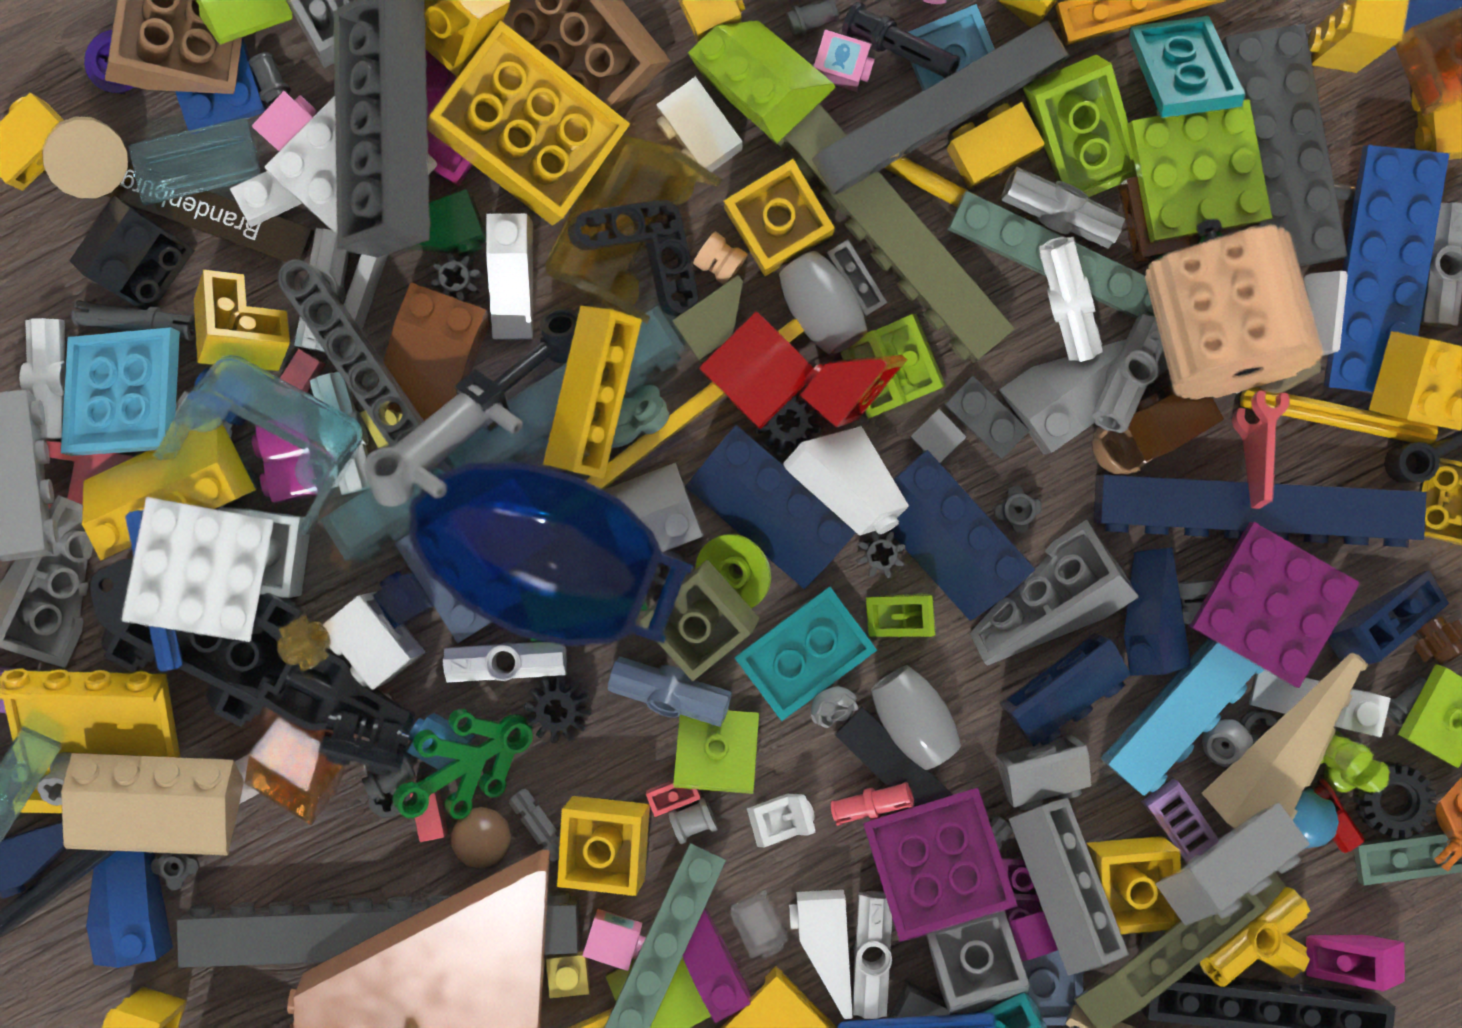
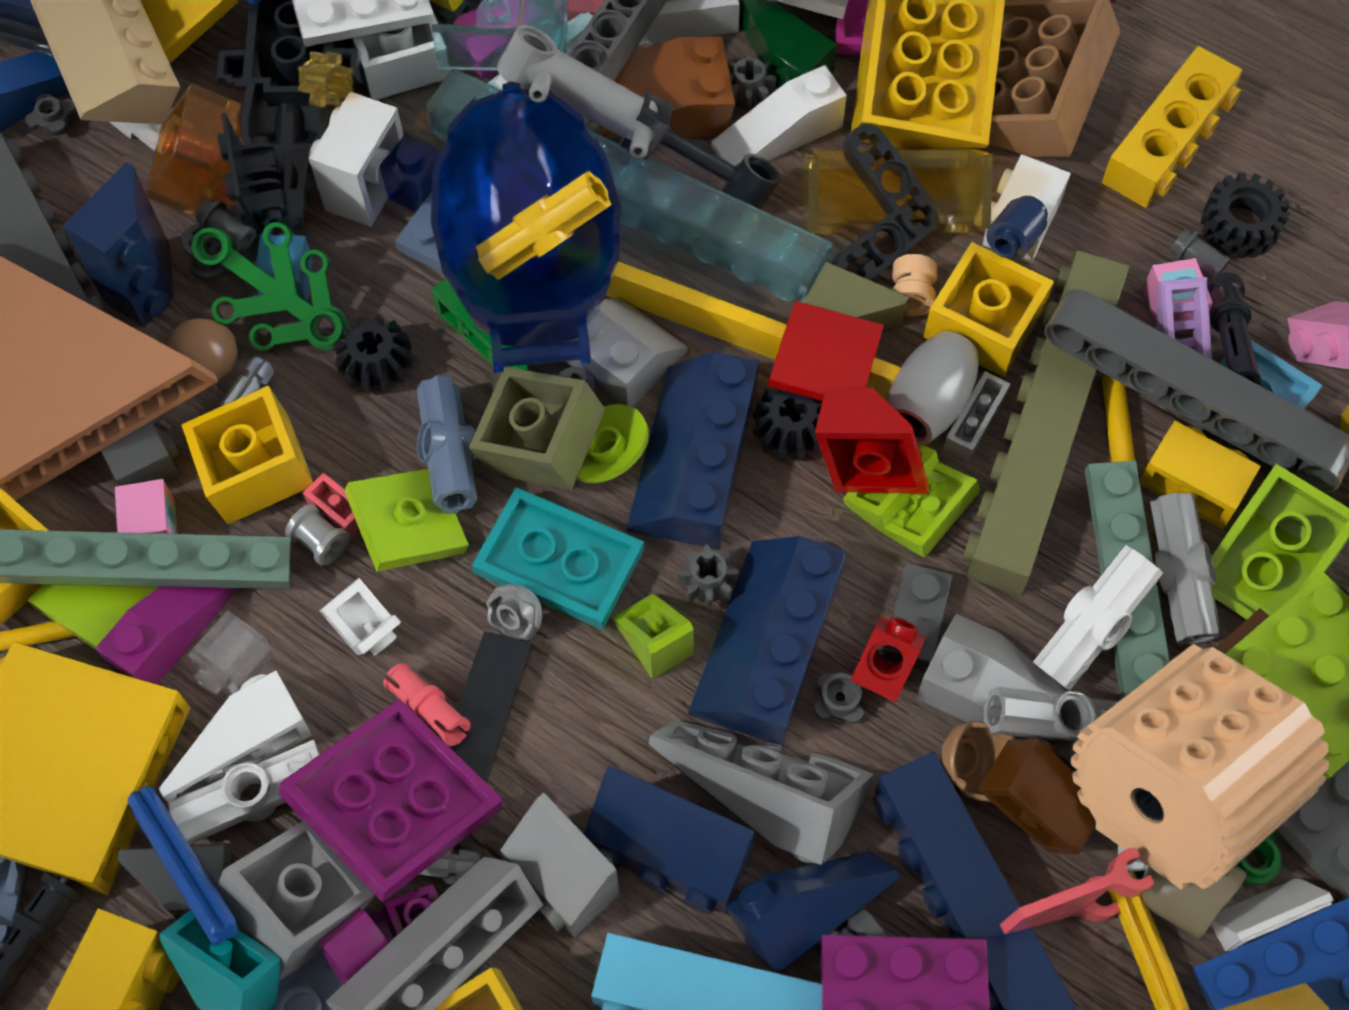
camera: 65 degrees right, 25 degrees down
(374, 865) = (124, 247): none -> dark blue slope
(432, 822) = (198, 296): coral piece -> none
(480, 663) = (407, 303): white piece -> none
(552, 541) = (543, 225): none -> yellow piece
(567, 975) = (87, 500): light yellow plate -> none
(592, 391) = (713, 211): yellow brick -> none
(641, 413) = (716, 281): sand green plate -> none
(733, 158) = (1017, 227): none -> dark blue brick
(760, 75) = (1112, 223): lime slope -> none
(849, 480) = (768, 490): white slope -> none
(903, 81) = (1199, 324): none -> lavender slope
(916, 717) = (548, 697): light grey piece -> none
(938, 435) = (866, 576): light grey tile -> none
(1017, 464) = (885, 677): none -> red brick

